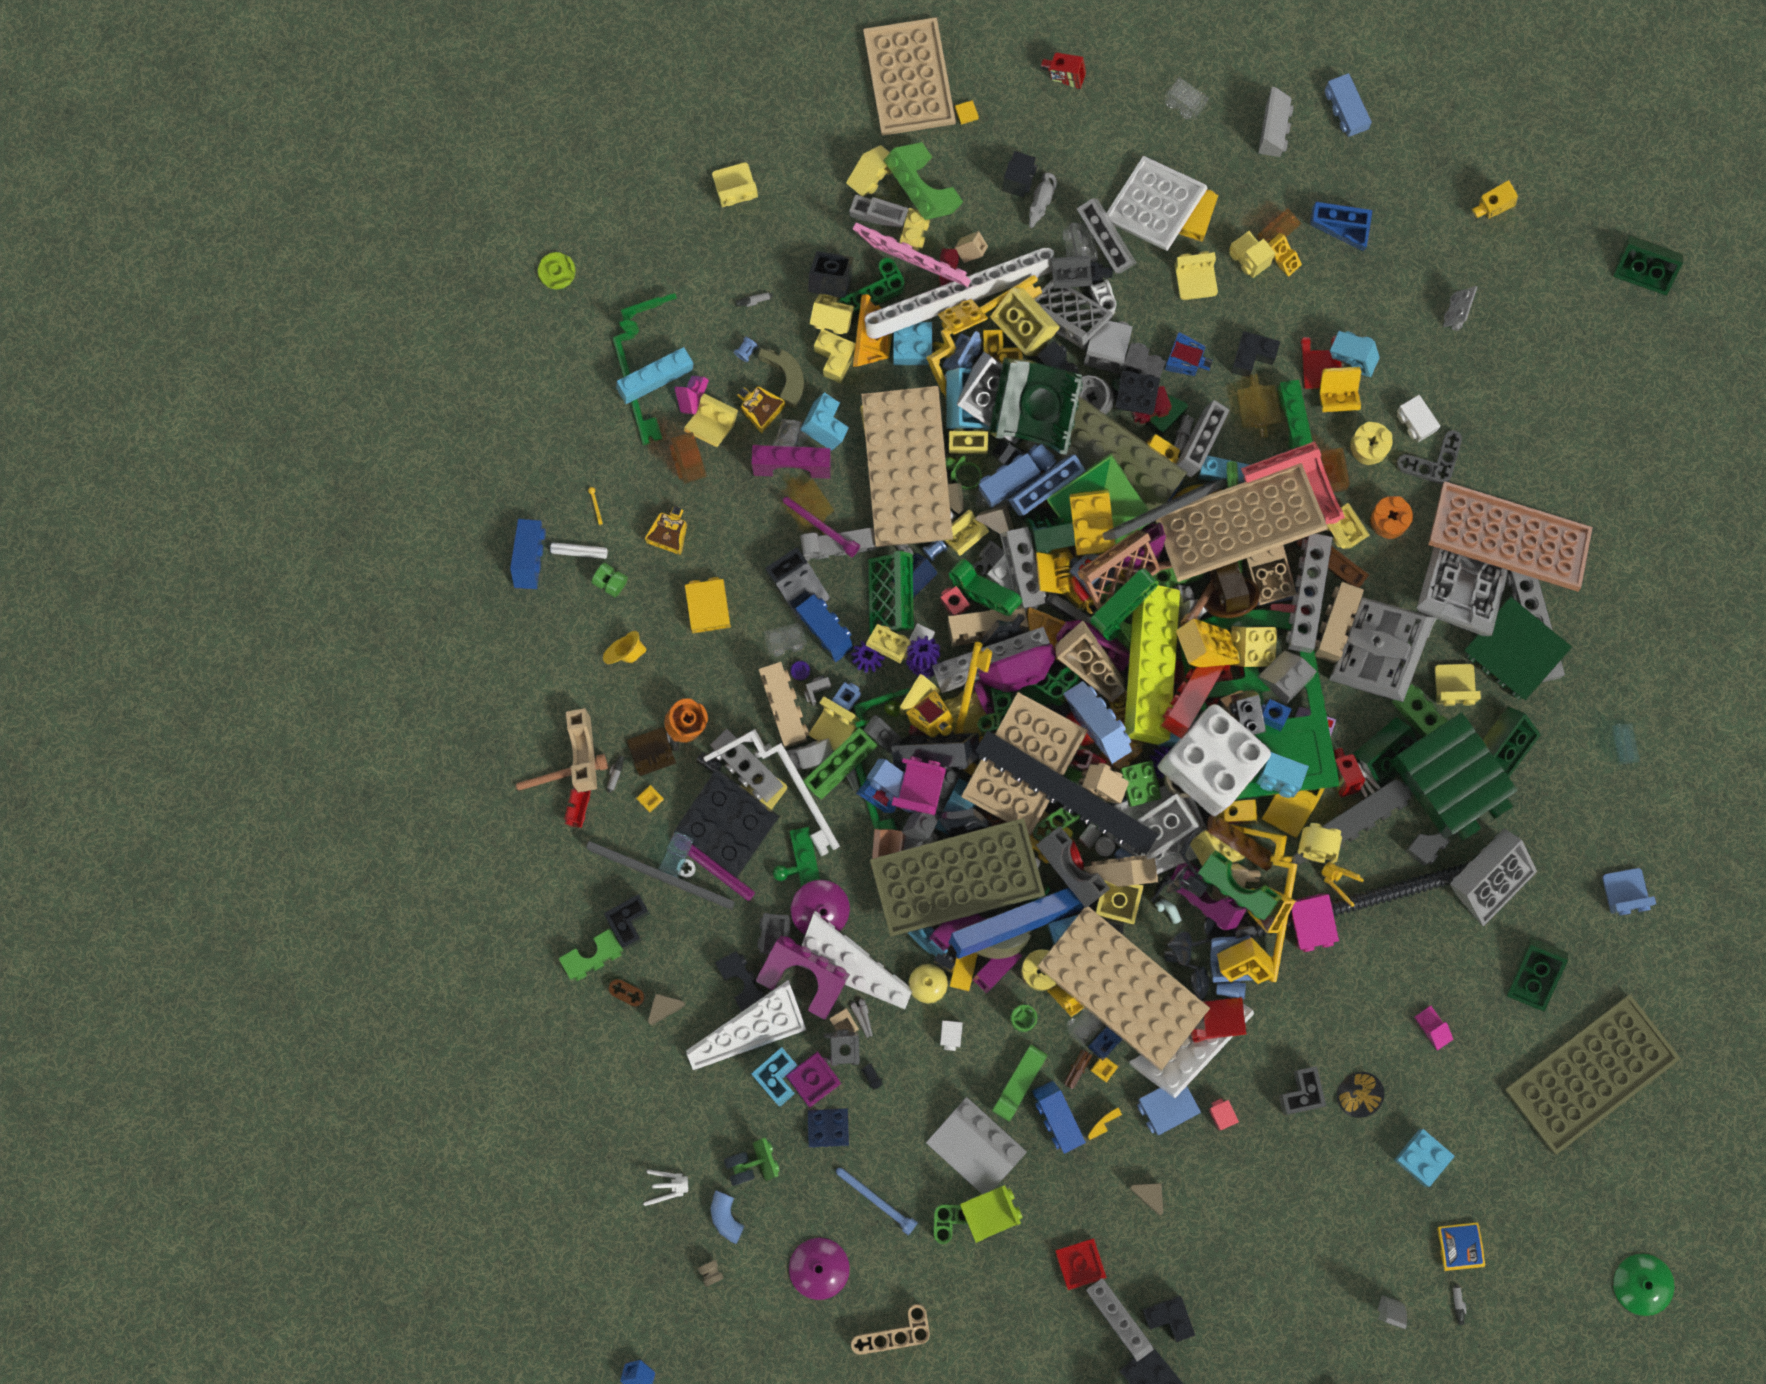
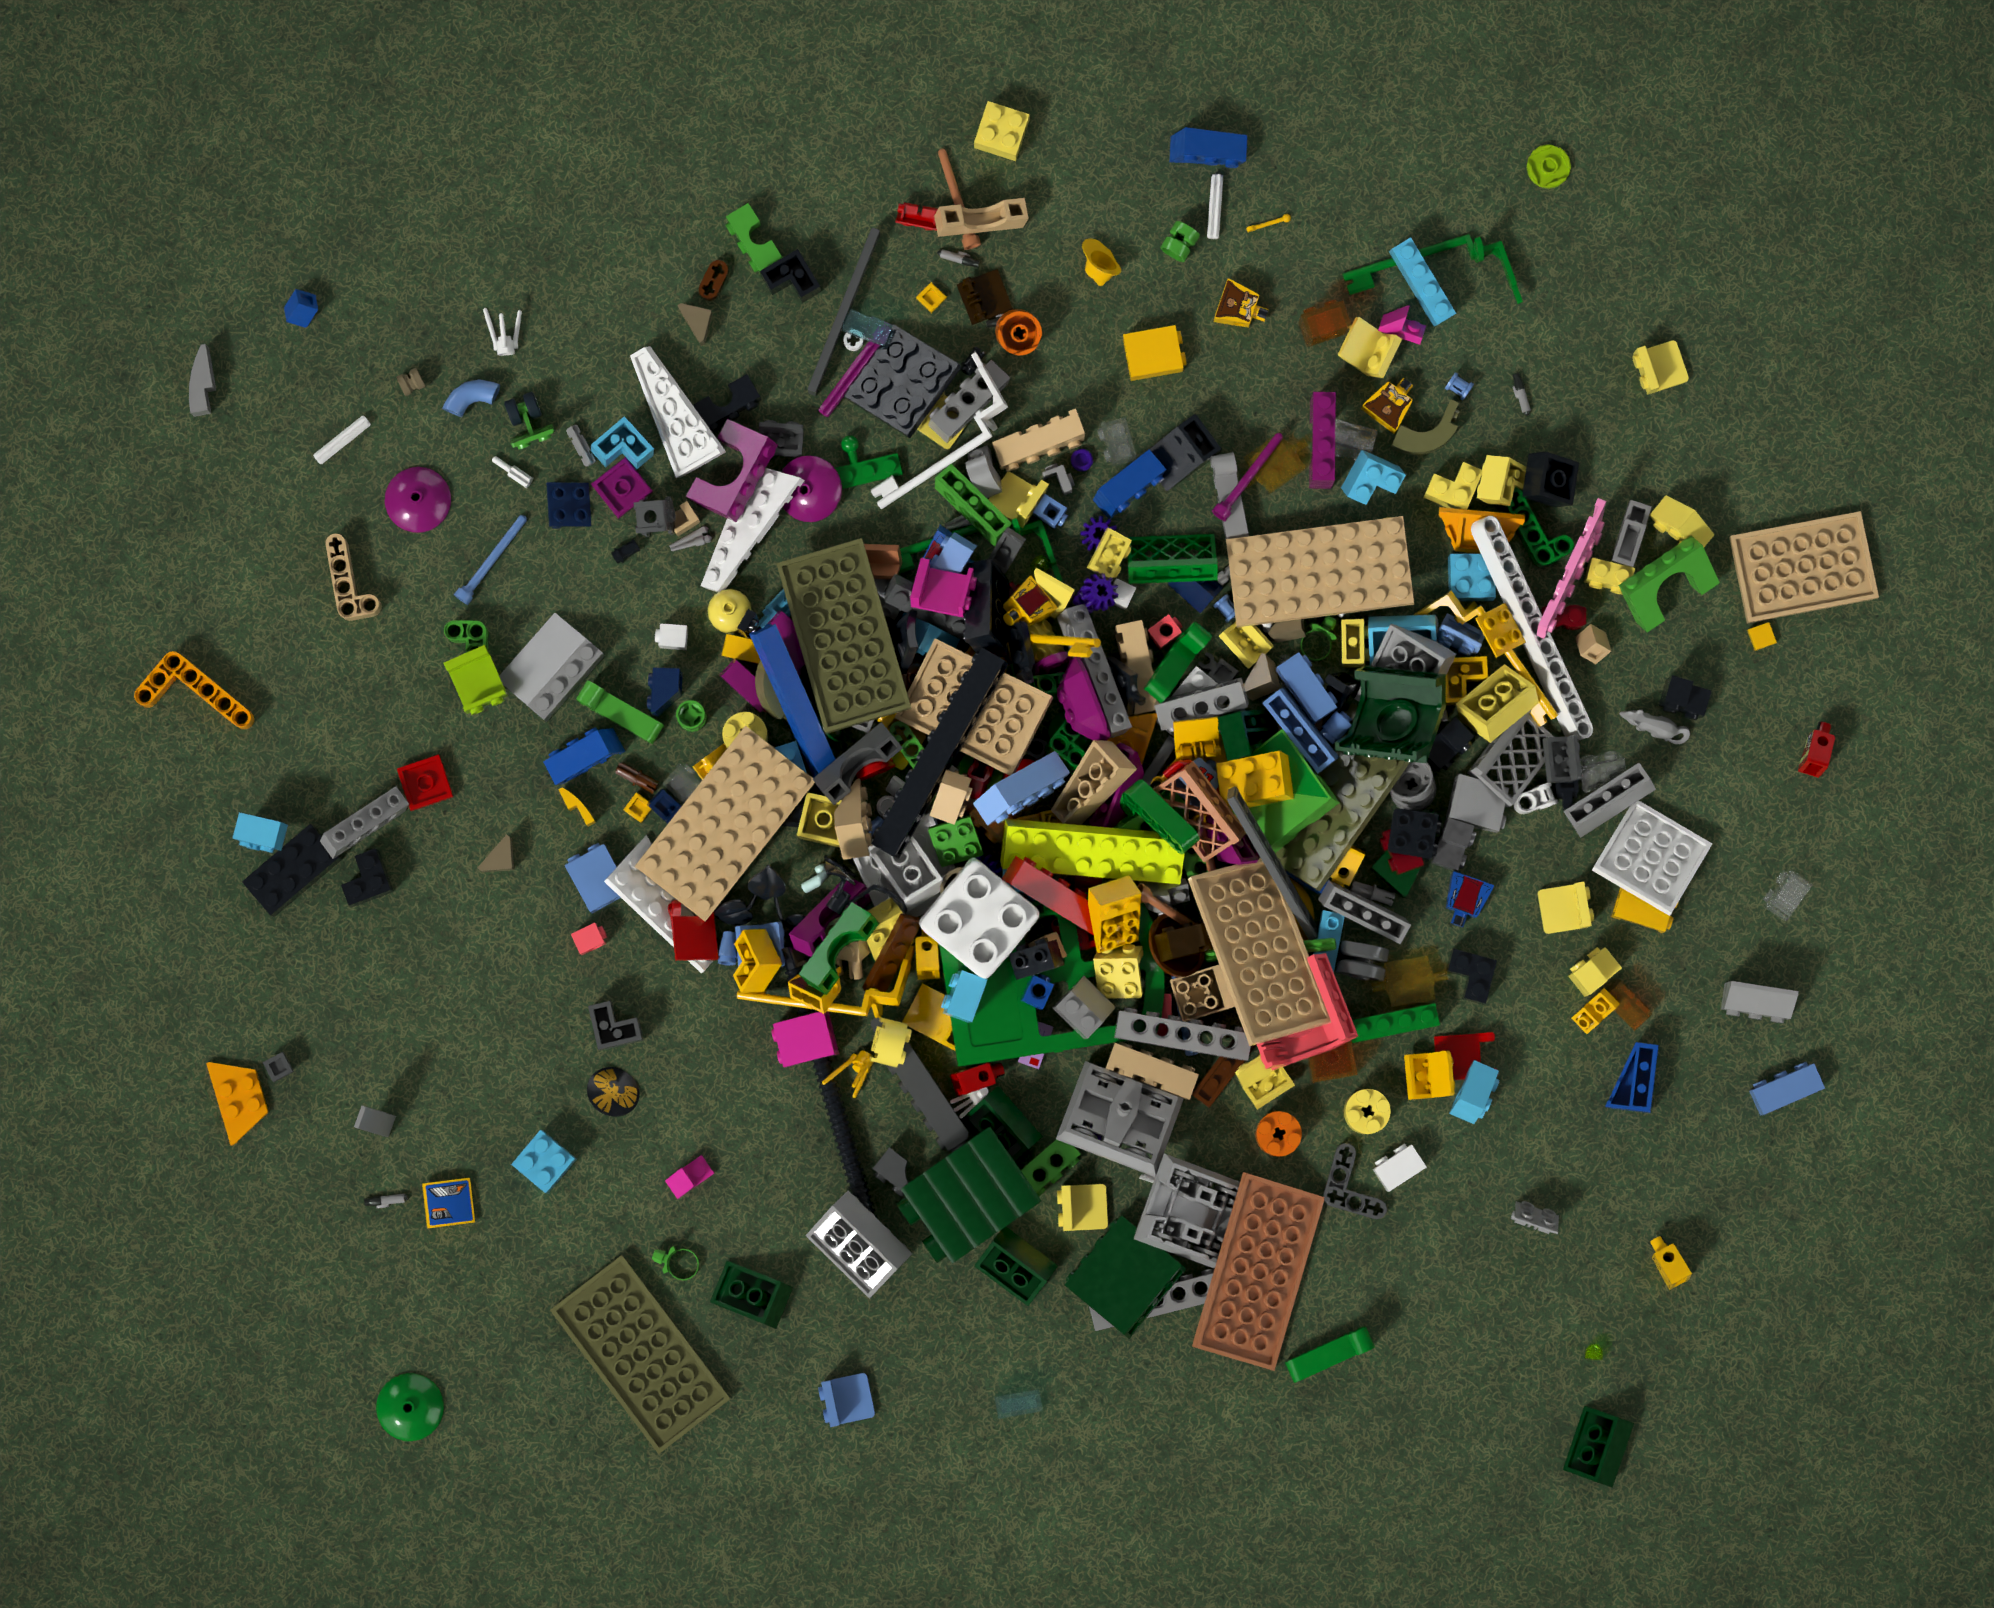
camera: 90 degrees right, 5 degrees up
(503, 732) = (1001, 131): none -> light yellow brick
(761, 1339) = (341, 439): none -> white axle
(774, 1116) = (581, 445): none -> light grey axle
(796, 1178) = (514, 472): none -> white axle
(975, 720) = (1021, 651): none -> black hinge
(999, 1040) = (666, 689): none -> dark blue slope
(1245, 442) = (1362, 965): none -> dark grey wheel
(1506, 1054) = (659, 1256): none -> bright green piece
(1570, 266) = (1594, 1352): none -> clear neon green hinge
(1577, 479) = (1330, 1354): none -> green beam

